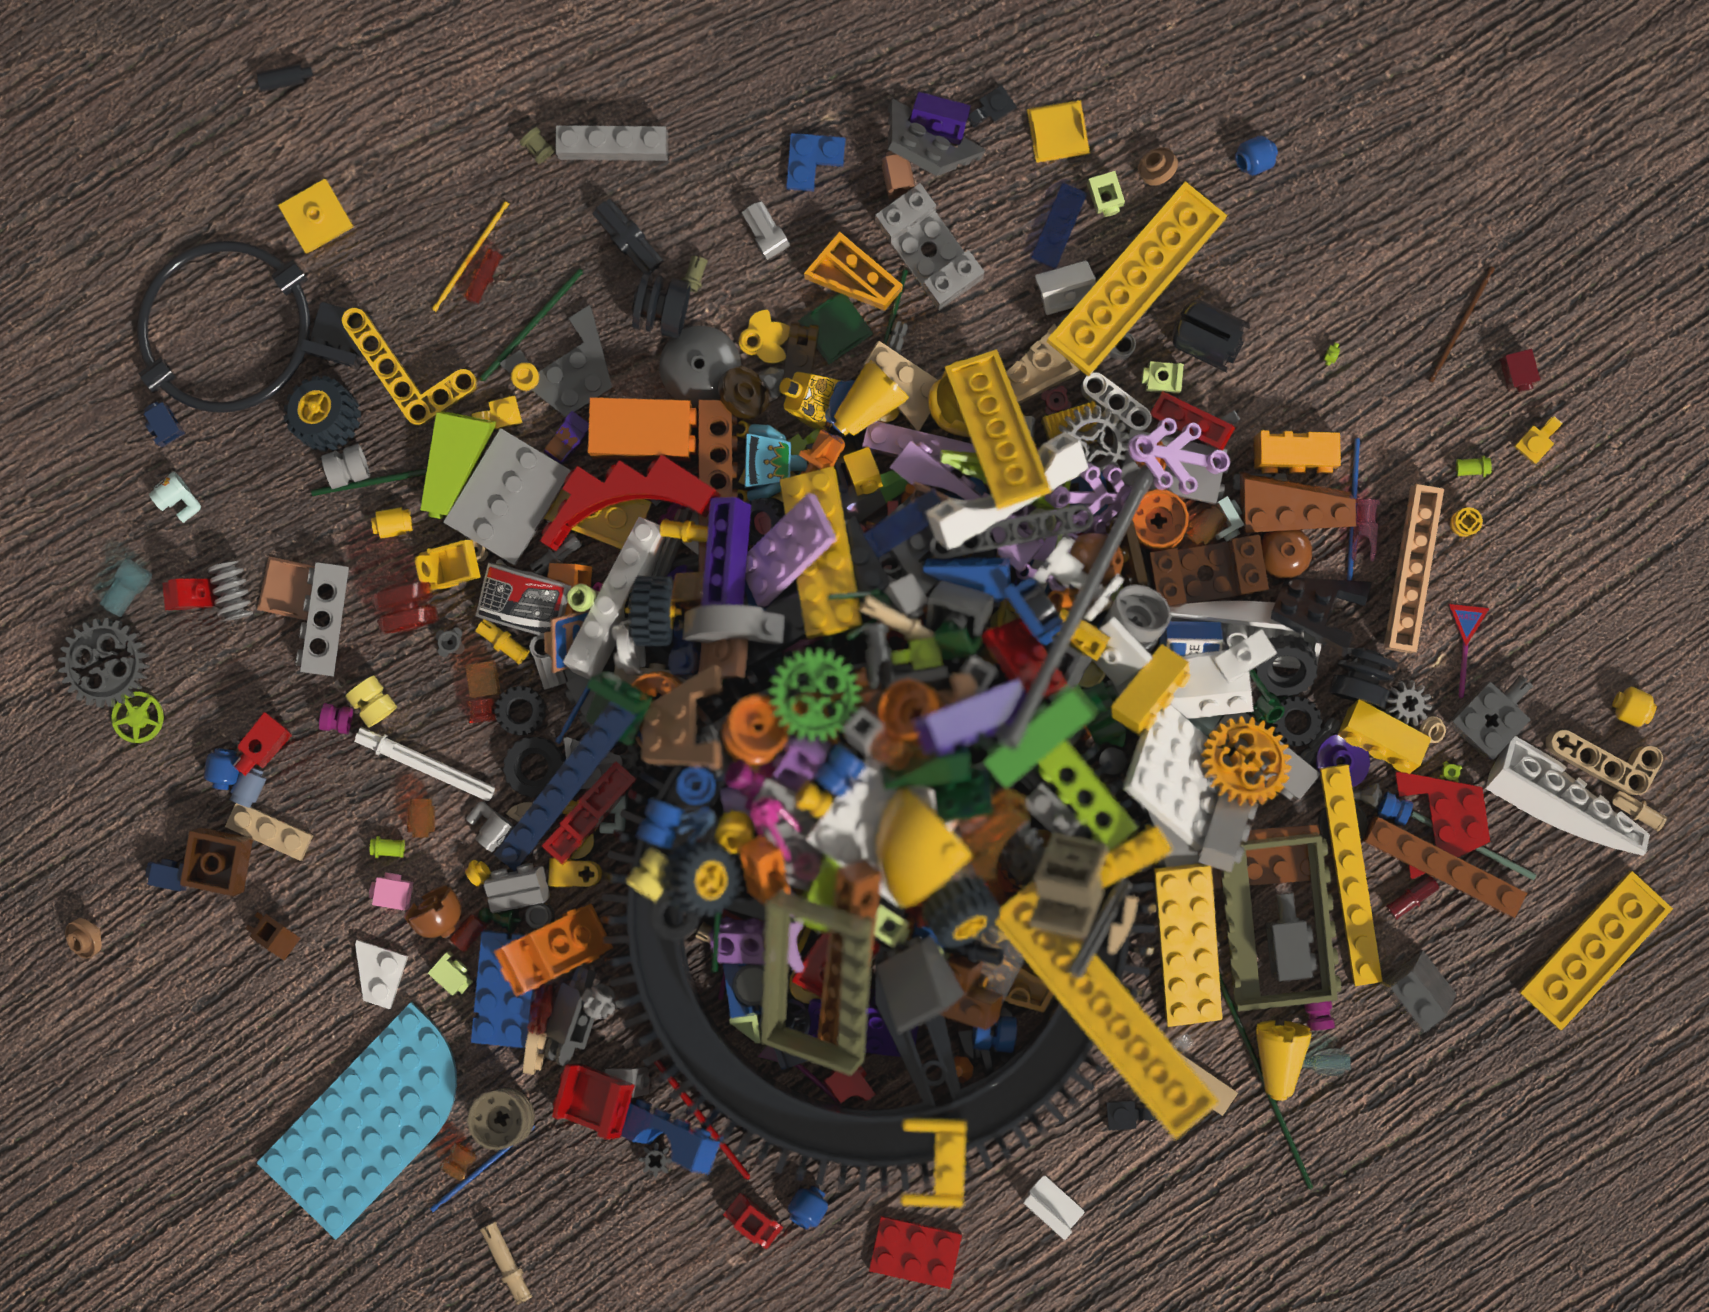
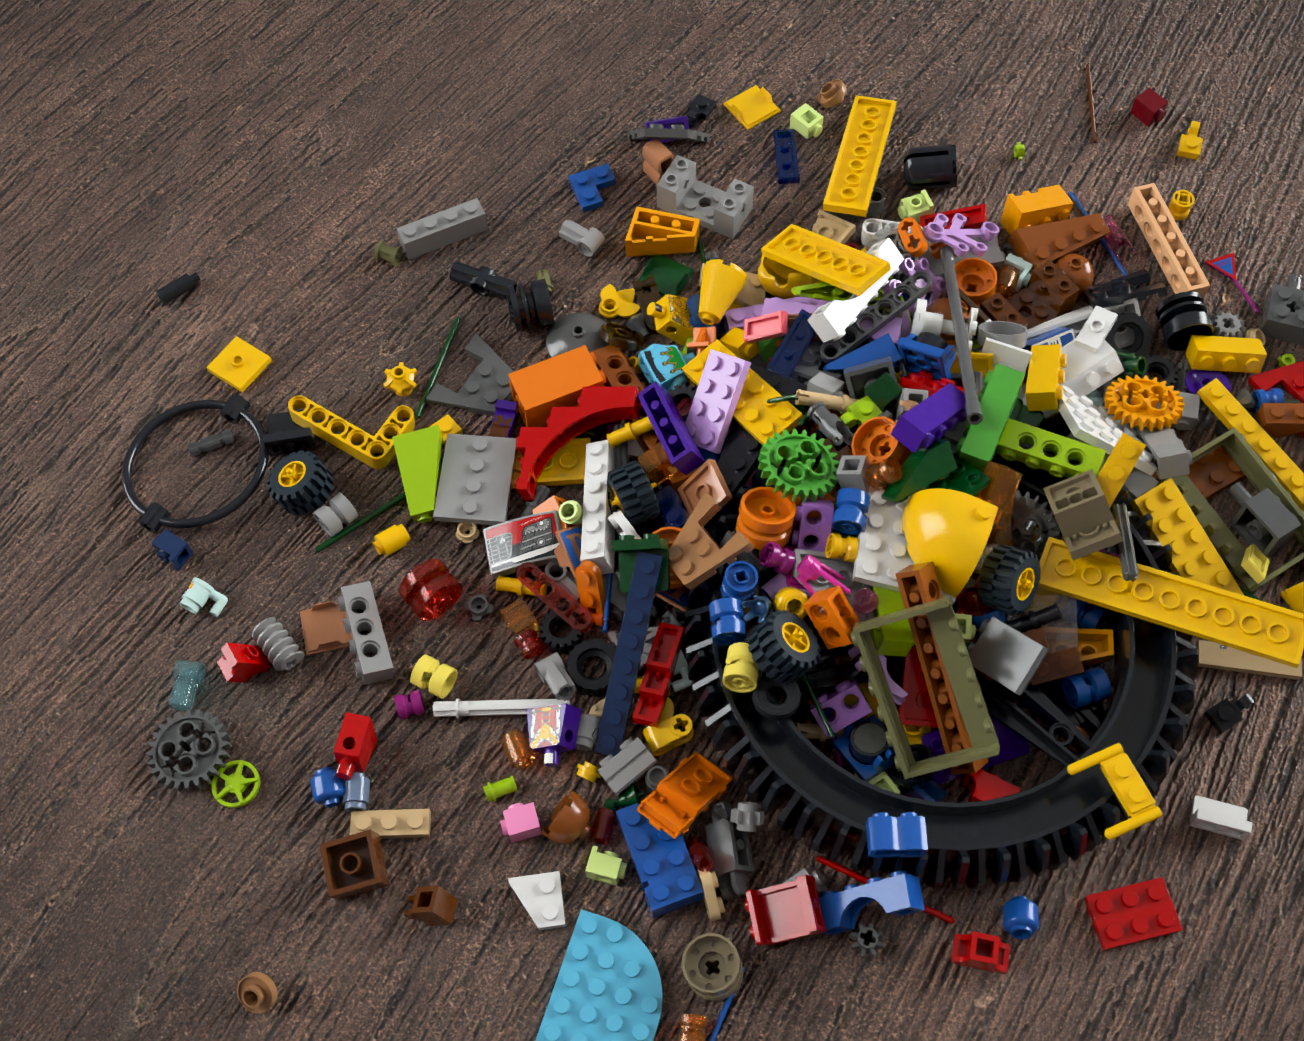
camera: 25 degrees left, 25 degrees down
(165, 874) = (313, 901): dark blue brick -> none
(249, 306) = (211, 442): none -> dark grey axle
(448, 565) = (452, 545): yellow piece -> none
(460, 819) = (553, 731): none -> torso
(470, 256) = (370, 342): yellow piece -> none
(483, 276) = (386, 348): clear red pin -> none
(488, 333) = (400, 379): none -> yellow rock
(490, 752) = (554, 673): none -> light grey piece
(525, 376) = (450, 396): yellow tile -> none
(530, 676) = (554, 597): none -> clear red beam
(563, 693) = (591, 590): none -> orange plate
(707, 1108) = (896, 835): none -> blue brick
(732, 622) = (697, 461): light grey arch -> none
(890, 481) = (765, 327): none -> coral tile
(1052, 811) = (1034, 482): light grey hinge -> none
(1065, 286) = (813, 186): white panel -> none
(1114, 443) = (916, 235): none -> orange beam
(1119, 932) = (1140, 533): tan slope -> none
(1251, 984) = (1255, 563): none -> light yellow tile
(1256, 155) = (893, 63): blue head -> none
(1476, 466) = (1165, 171): lime pin -> none

